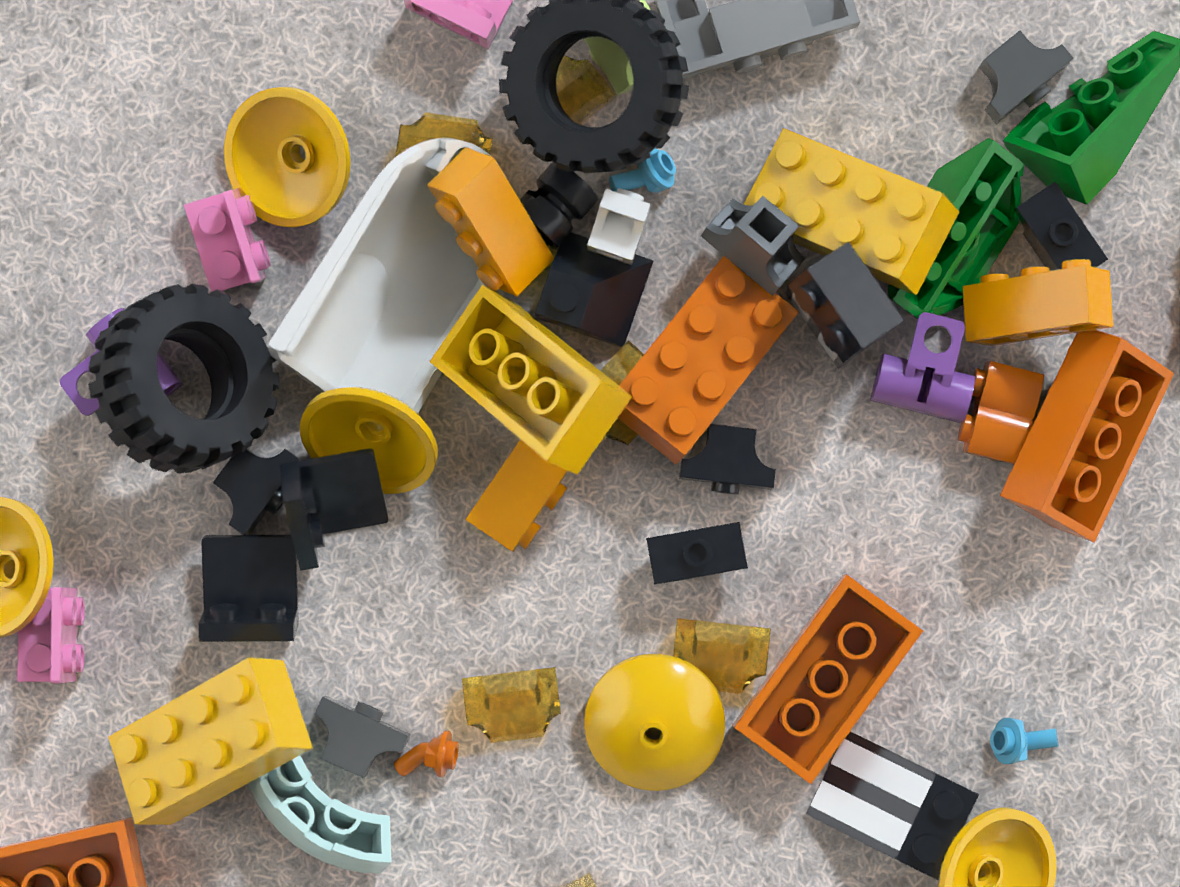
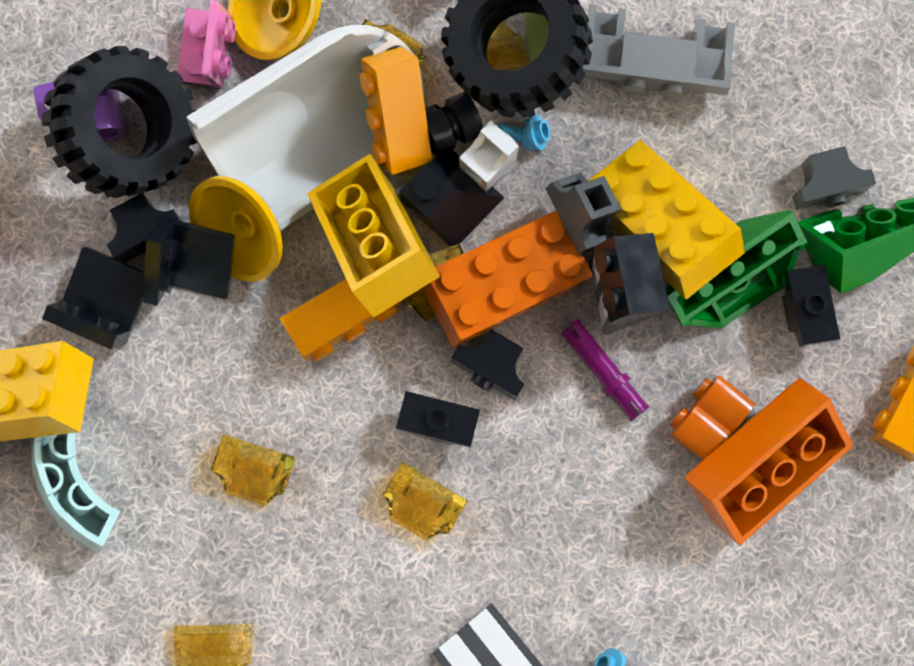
camera: 20 degrees right, 5 degrees down
(357, 735) = (127, 442): dark grey brick -> none
(438, 754) = (180, 483): orange plate -> none
(662, 695) = (369, 519): yellow dish -> none
(827, 678) = (493, 557): orange brick -> none
(858, 410) = (605, 370): none -> magenta pin
(927, 379) = (666, 368): medium lavender piece -> none
(1038, 304) = (774, 348): light orange brick -> none

